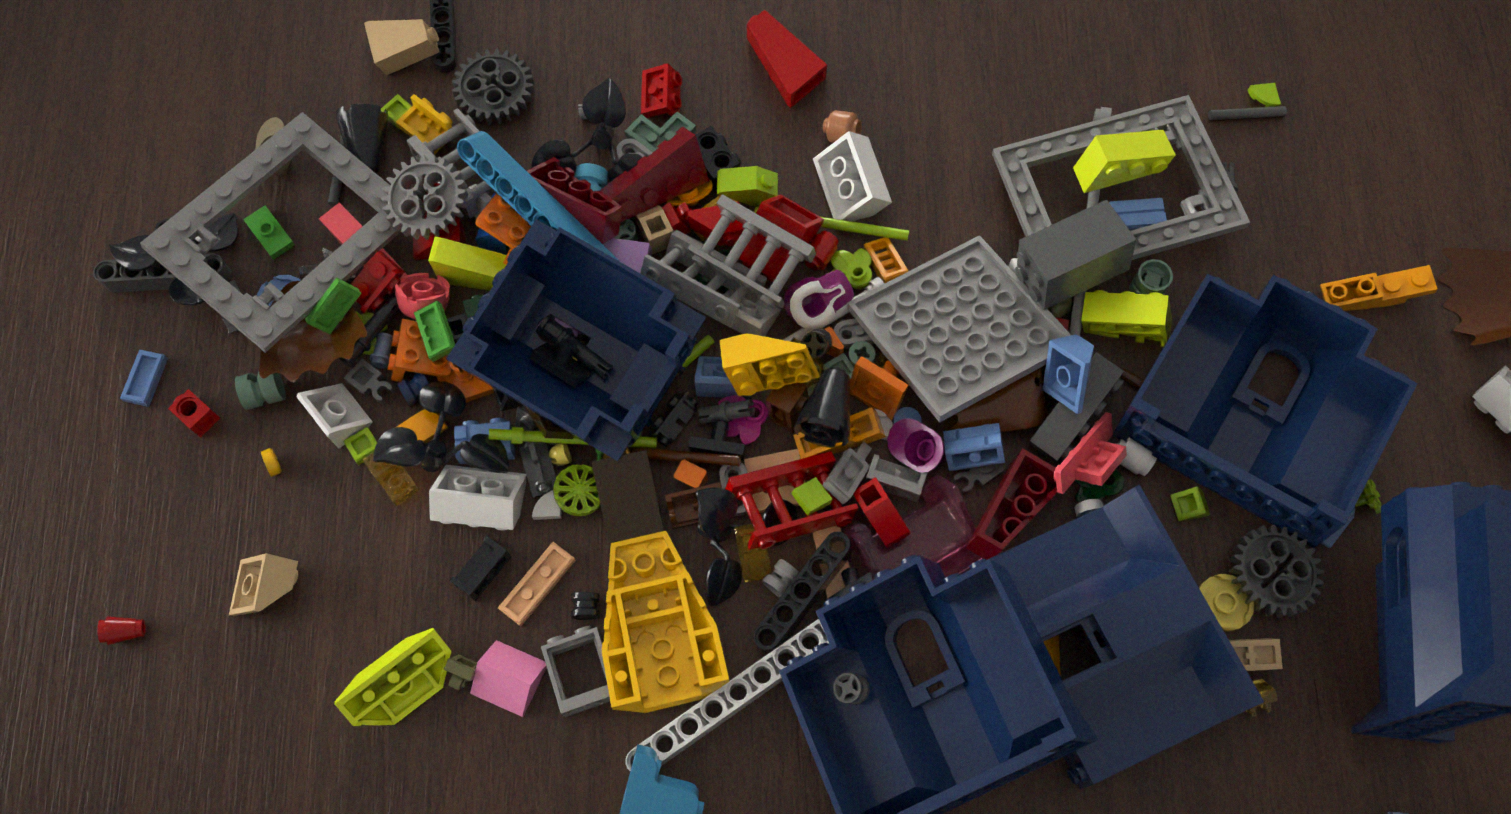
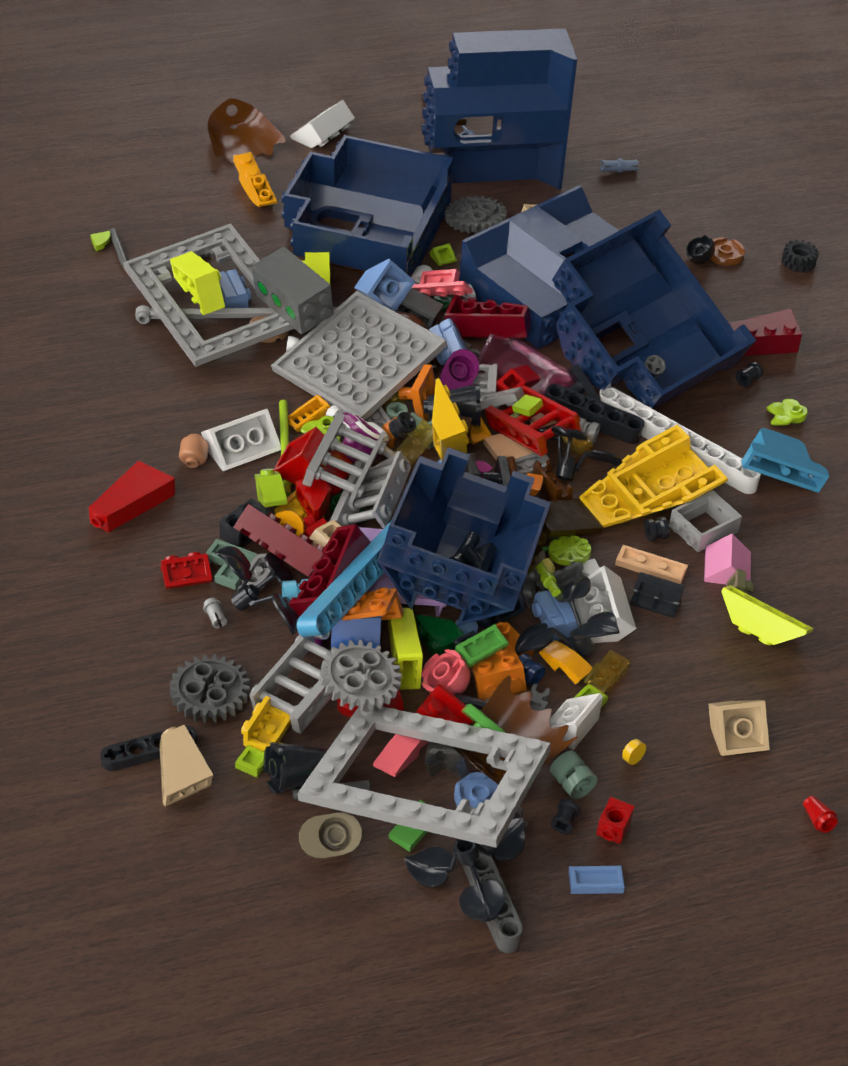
camera: 110 degrees left, 25 degrees down
(219, 368) = (565, 816): none -> black bush

